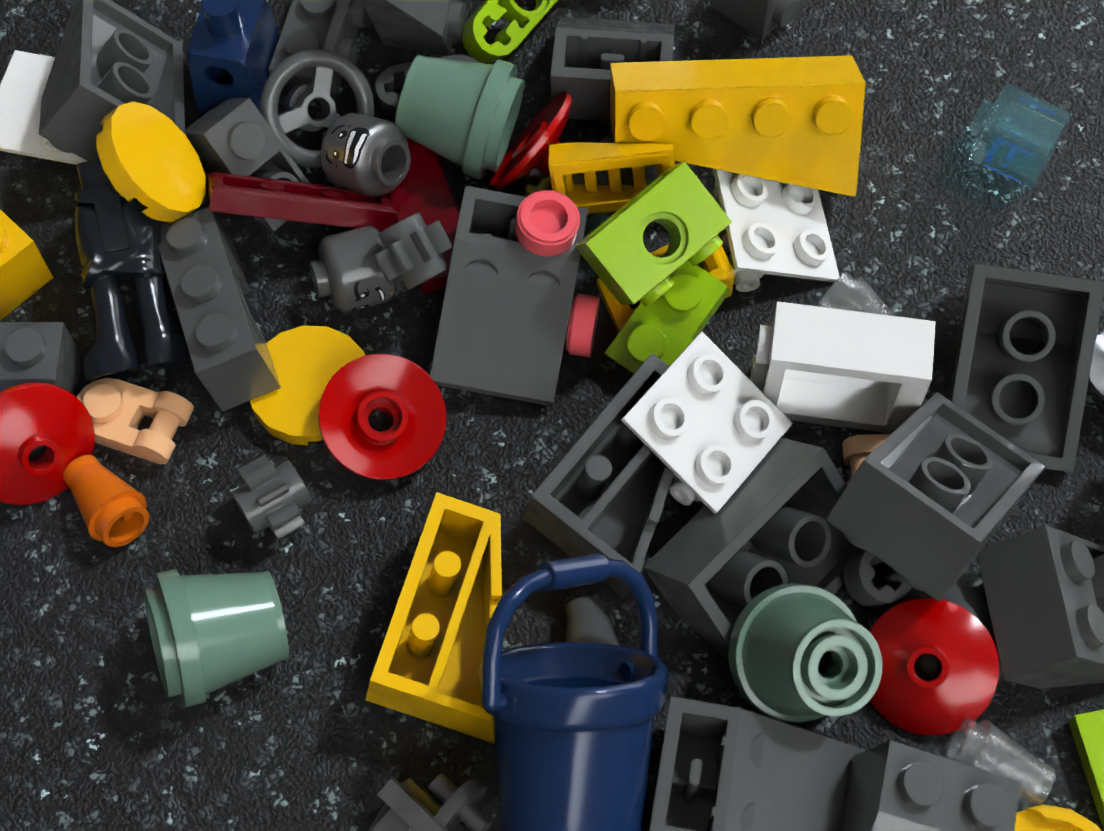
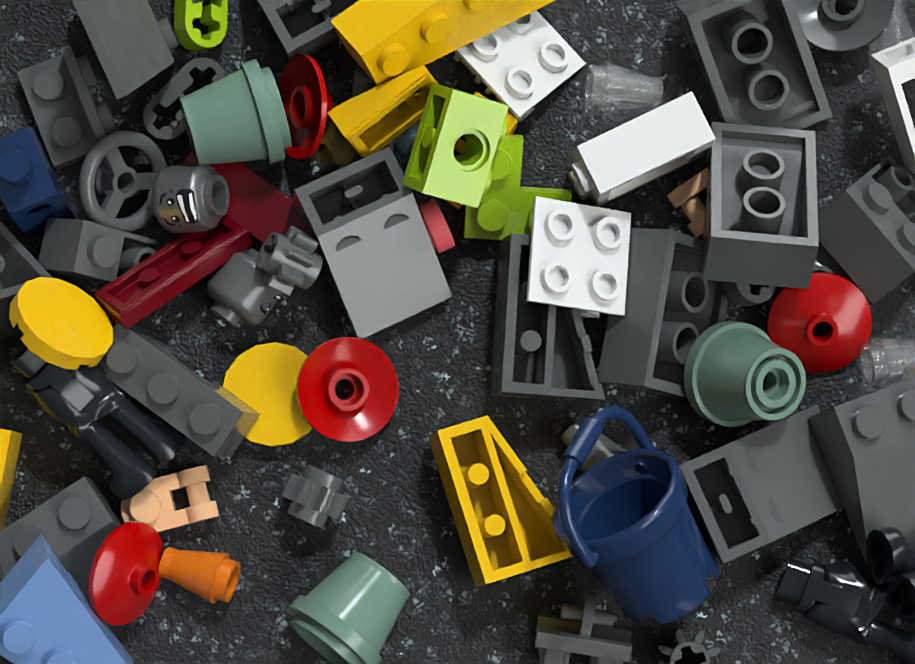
camera: 35 degrees left, 20 degrees up
(547, 223) = (373, 181): coral tile -> none

